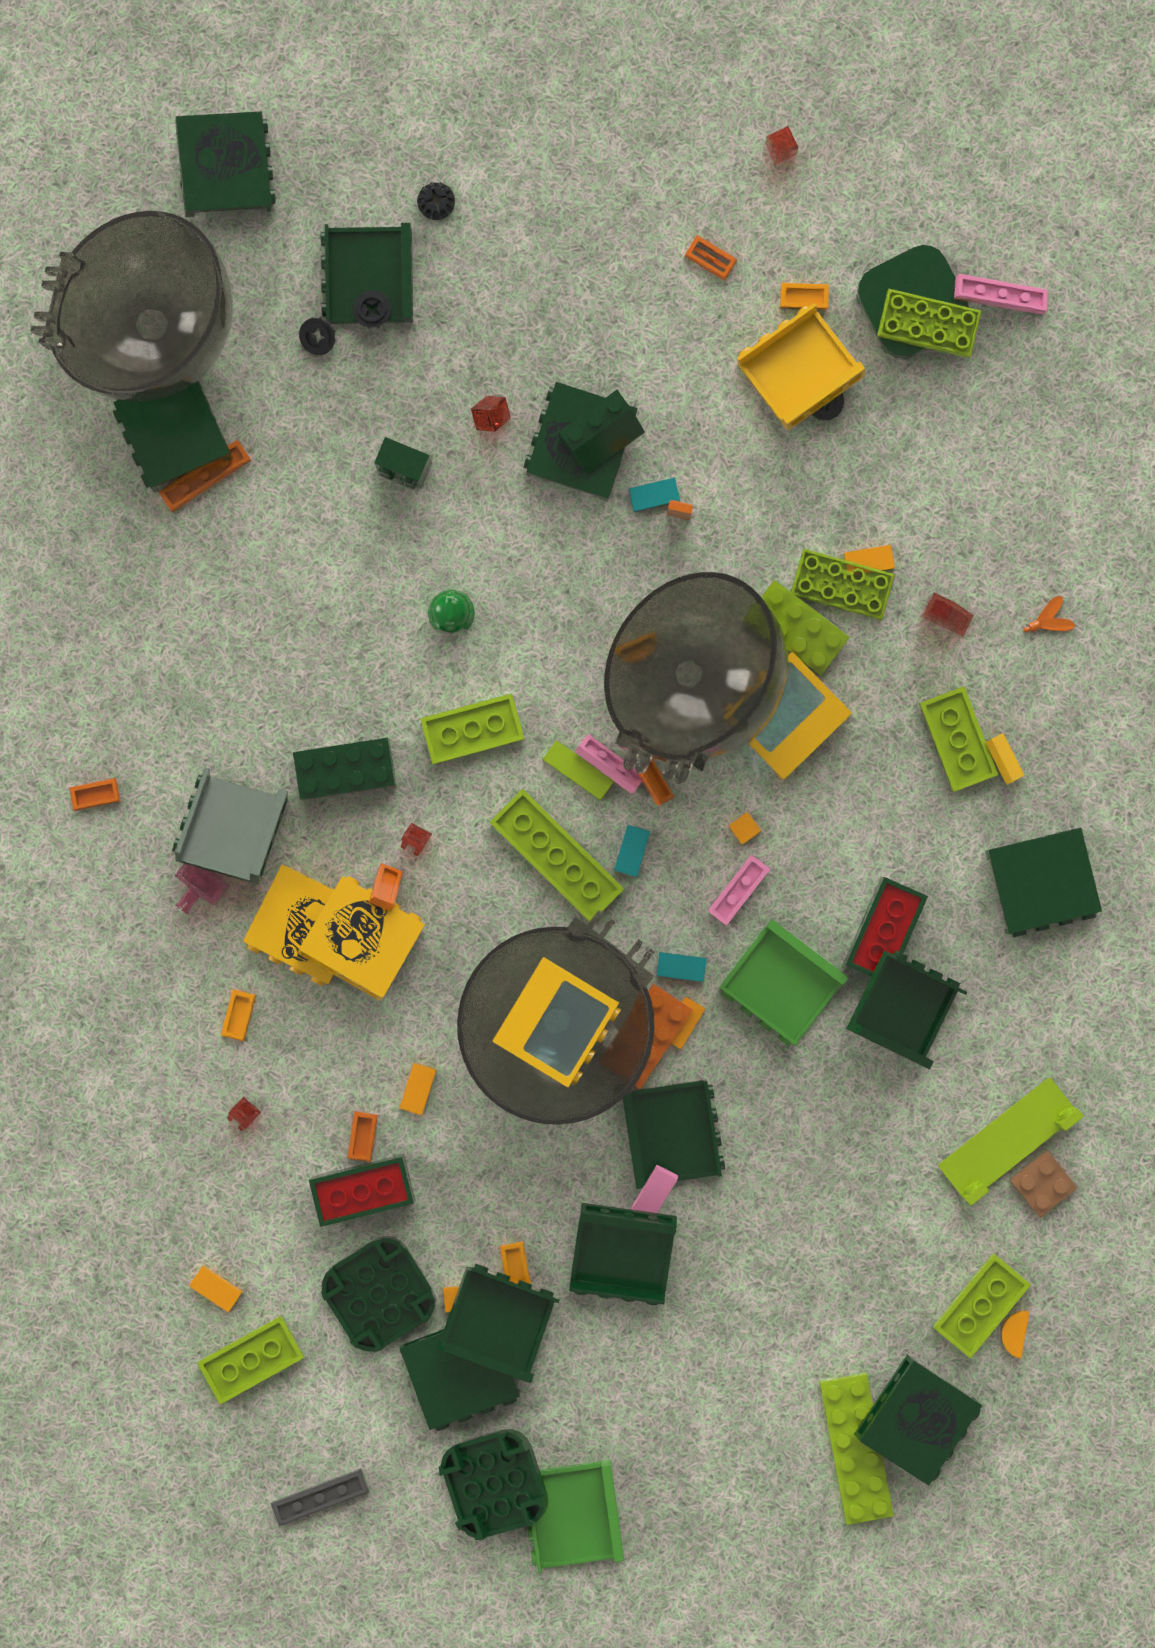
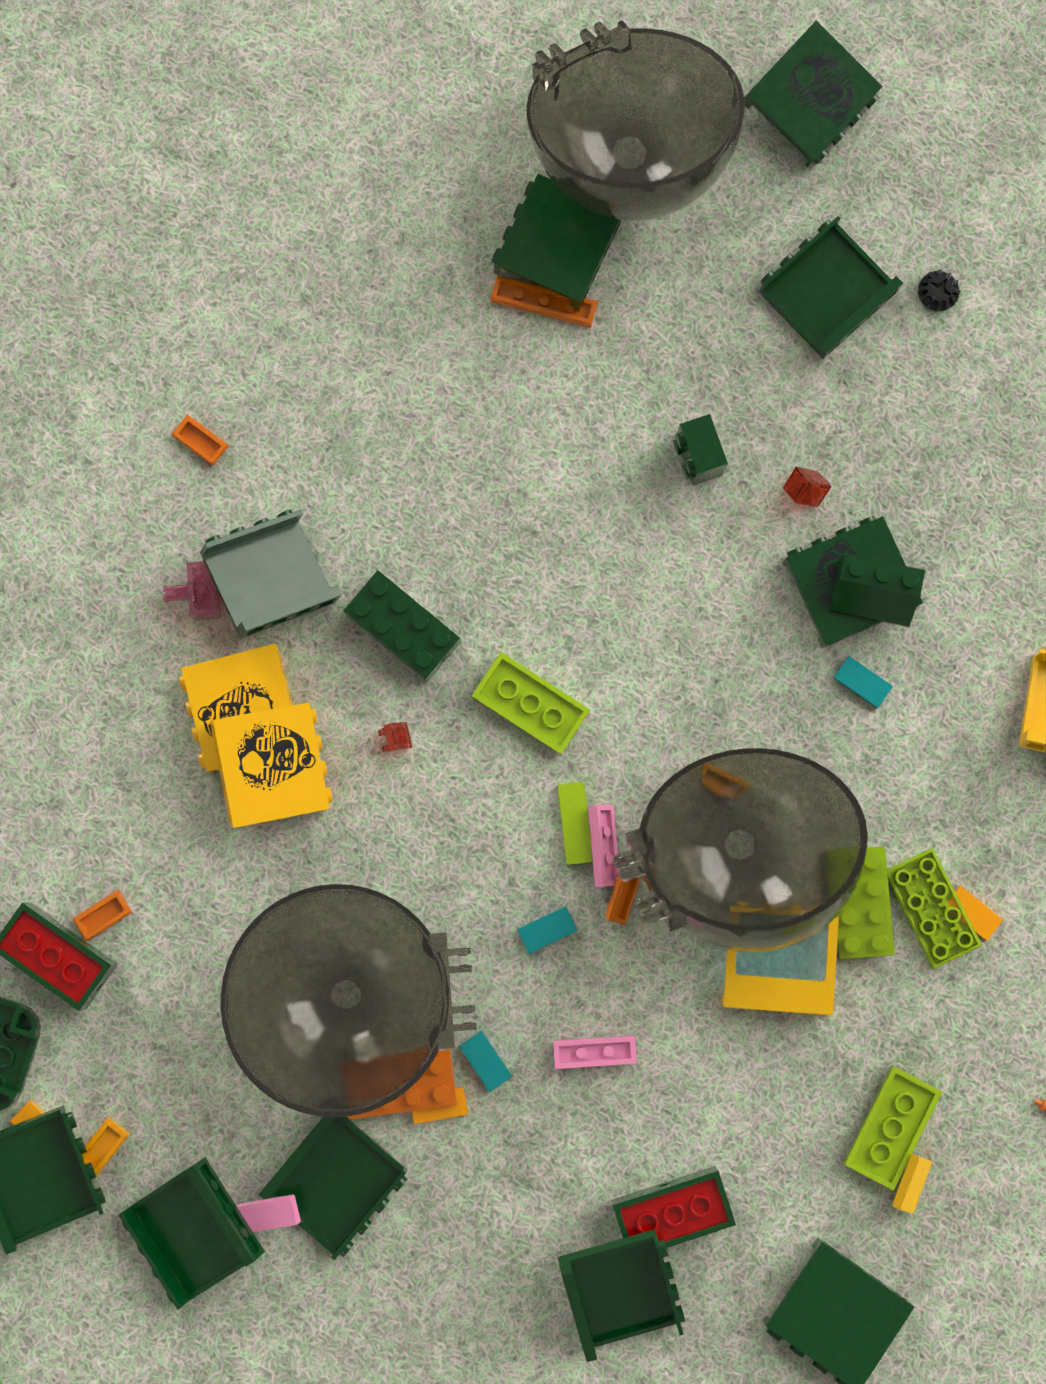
camera: 45 degrees right, 5 degrees down
(238, 1015) = (116, 720): light orange tile -> none
(243, 1113) = (35, 797): clear red tile -> none
(310, 341) = (731, 288): black gear -> none
(371, 299) = (811, 308): black gear -> none
(385, 887) = (332, 747): orange tile -> none
(418, 1088) = (184, 926): light orange tile -> none
(451, 611) = (613, 599): green helmet -> none
(556, 855) = (486, 869): lime plate -> none
(557, 1023) = (339, 998): panel -> none
(679, 510) = (870, 714): orange tile -> none
(744, 828) = (651, 1009): light orange tile -> none
(782, 983) = (548, 1162): bright green panel -> none
(947, 614) = (989, 1020): clear red slope -> none

